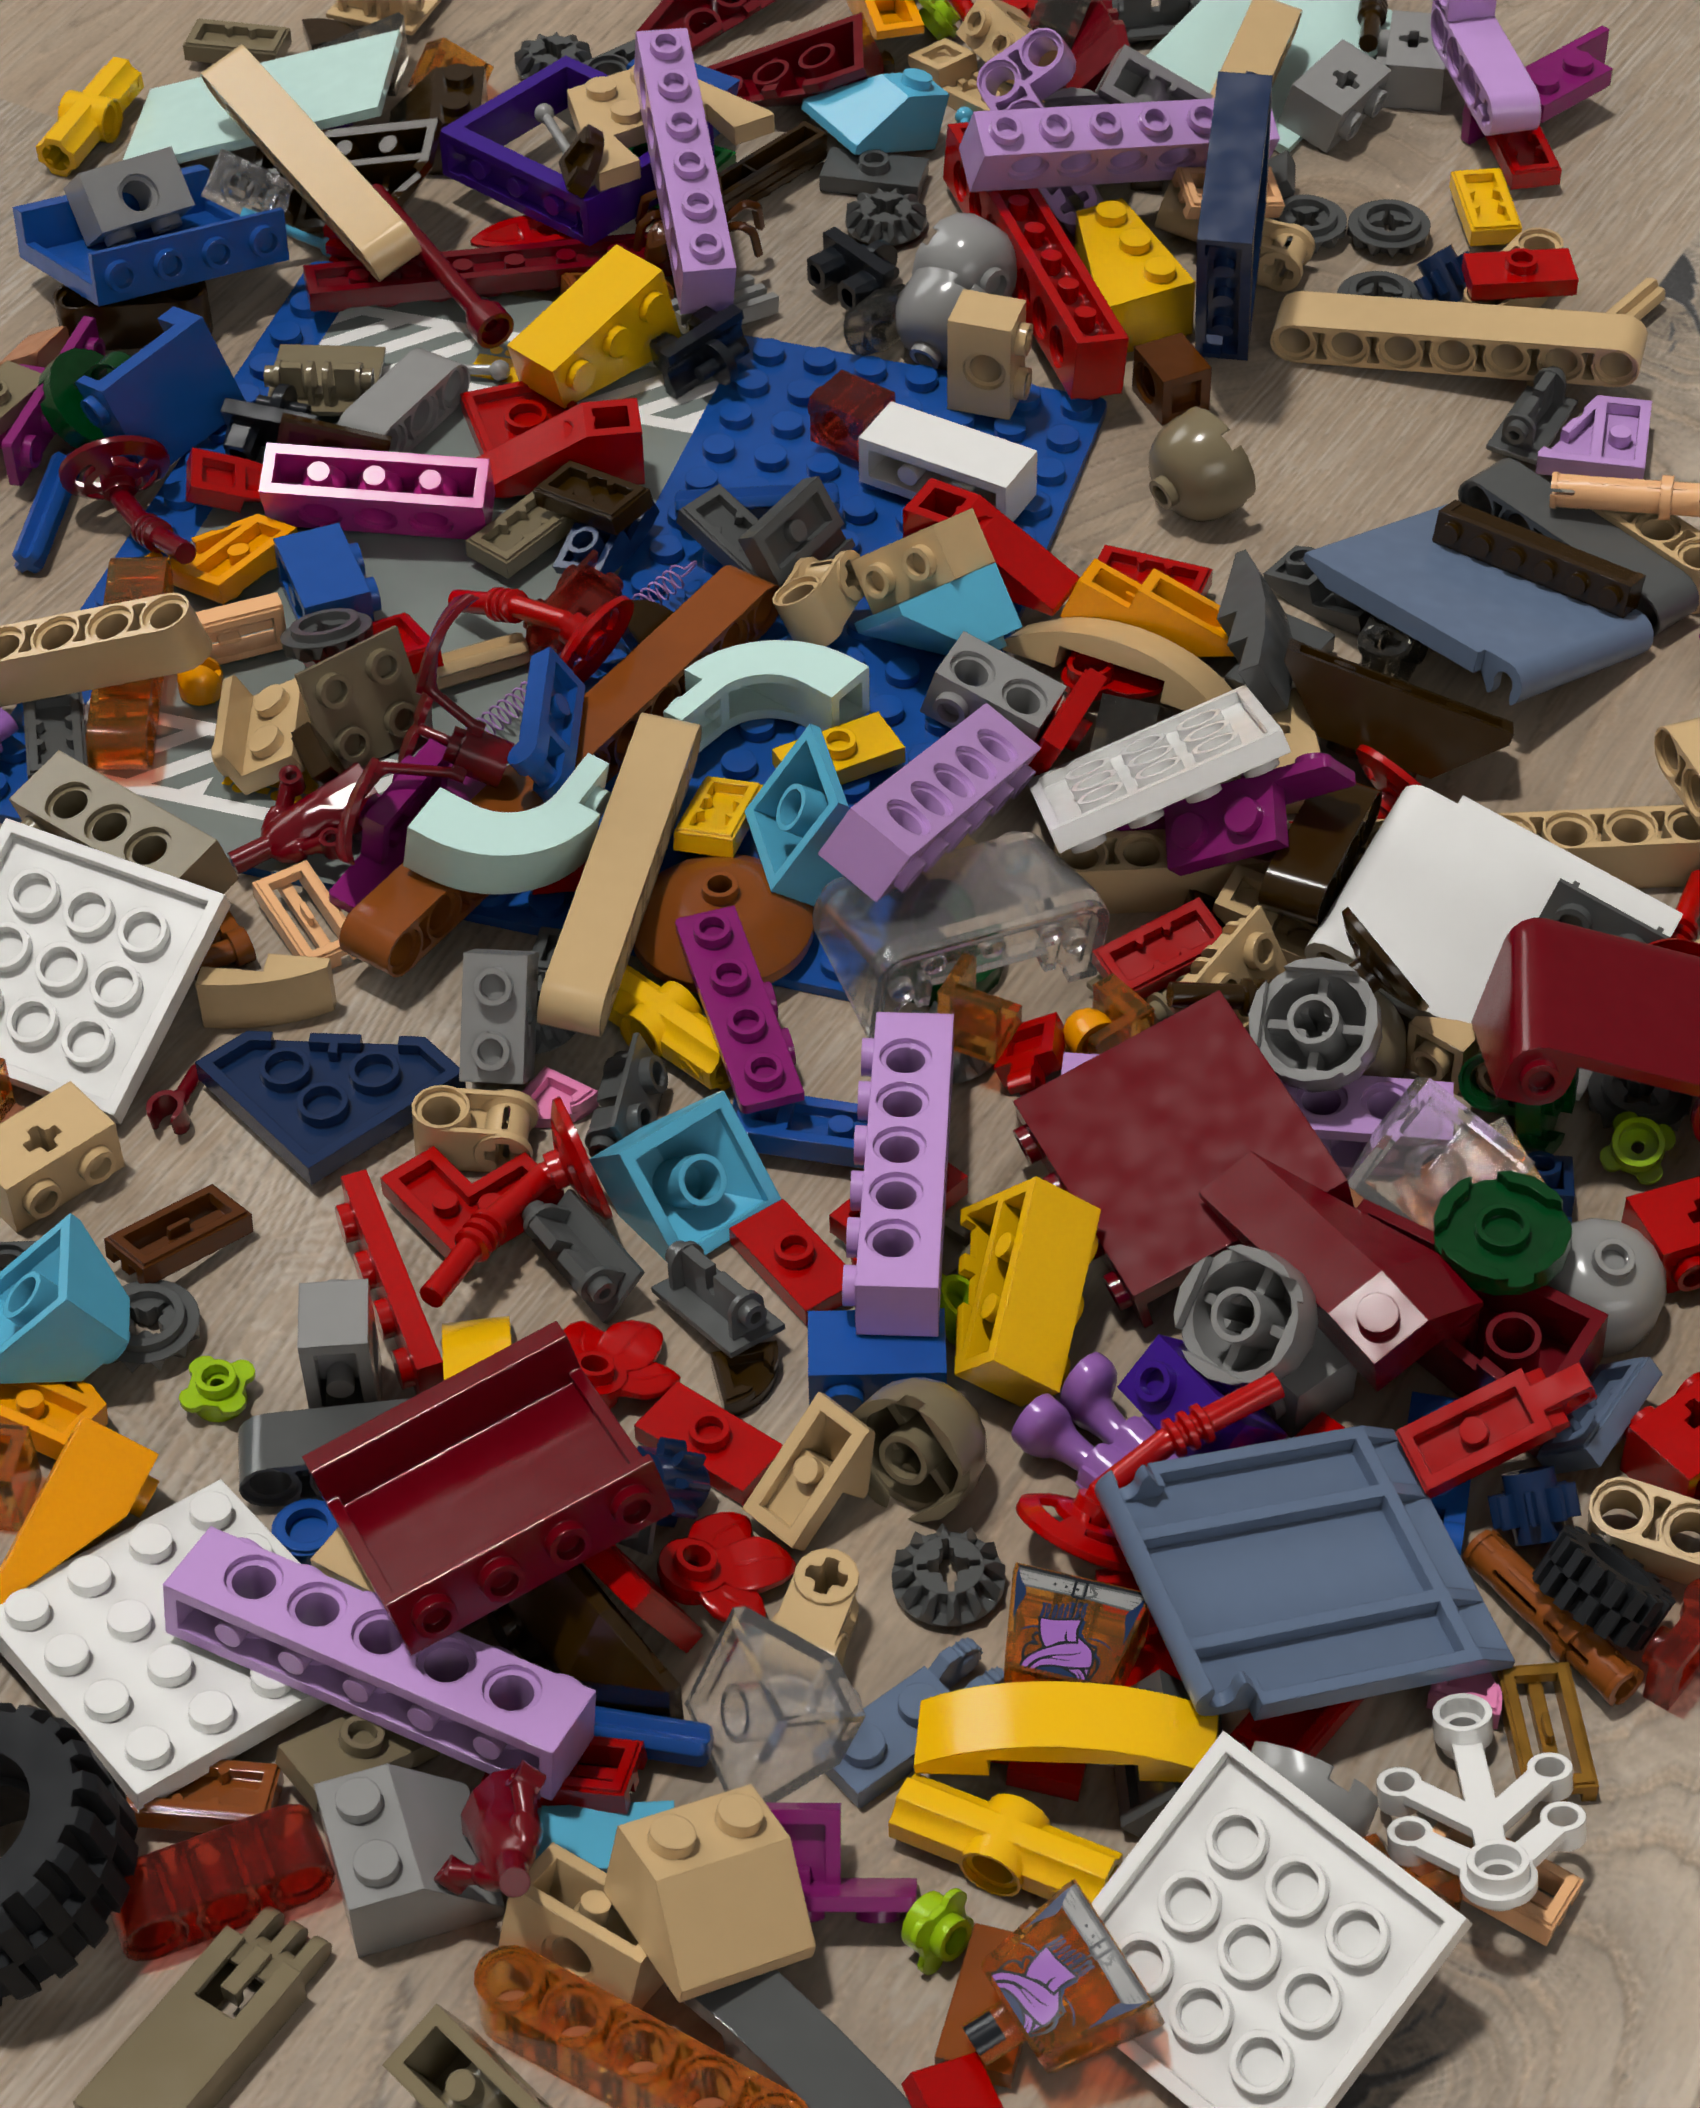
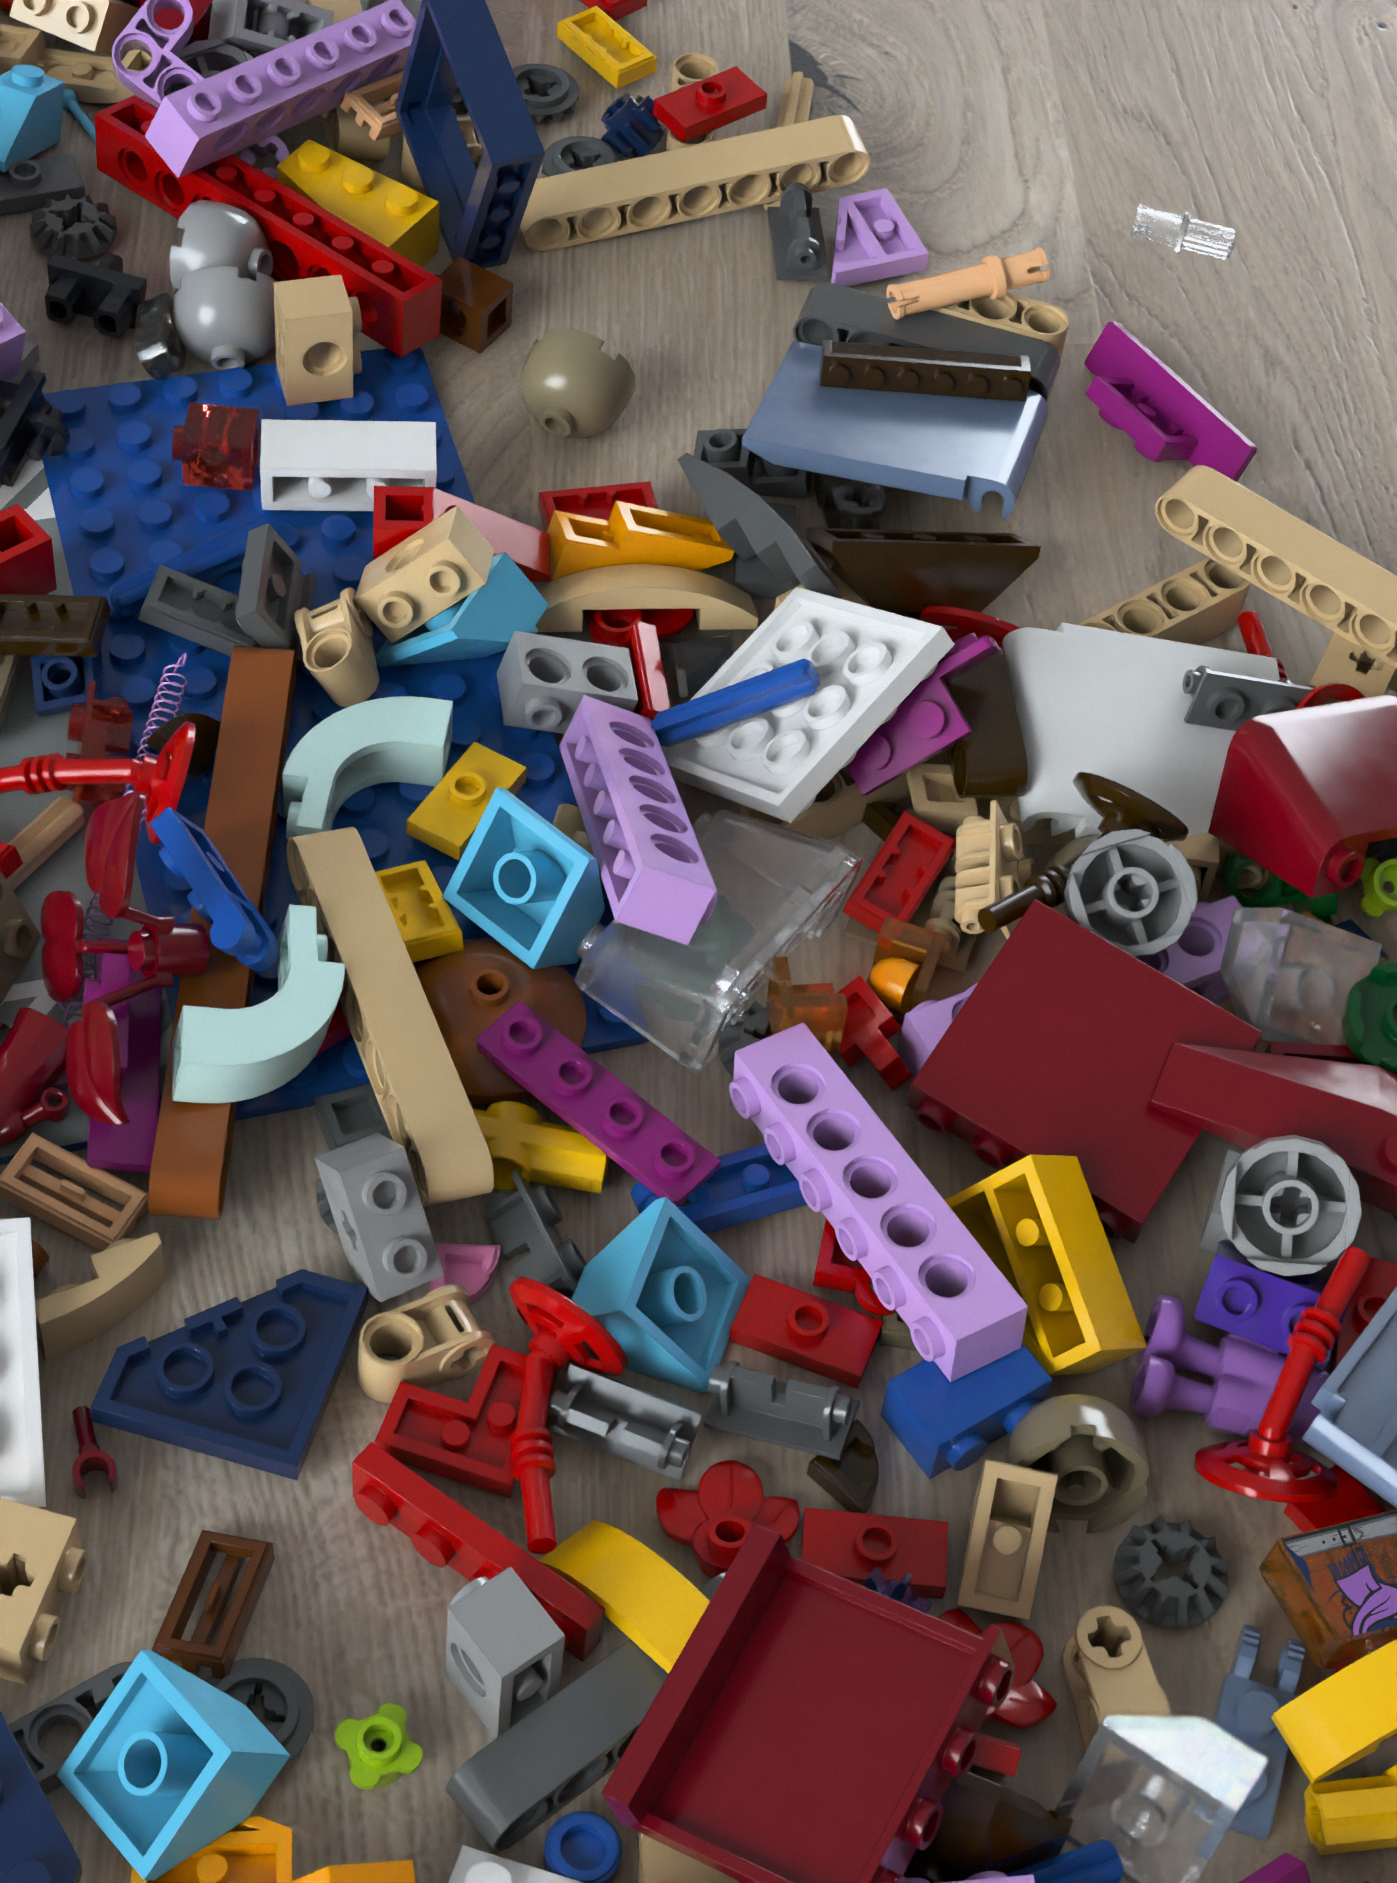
camera: 40 degrees left, 5 degrees up
(1102, 750) = (736, 703): none -> blue axle

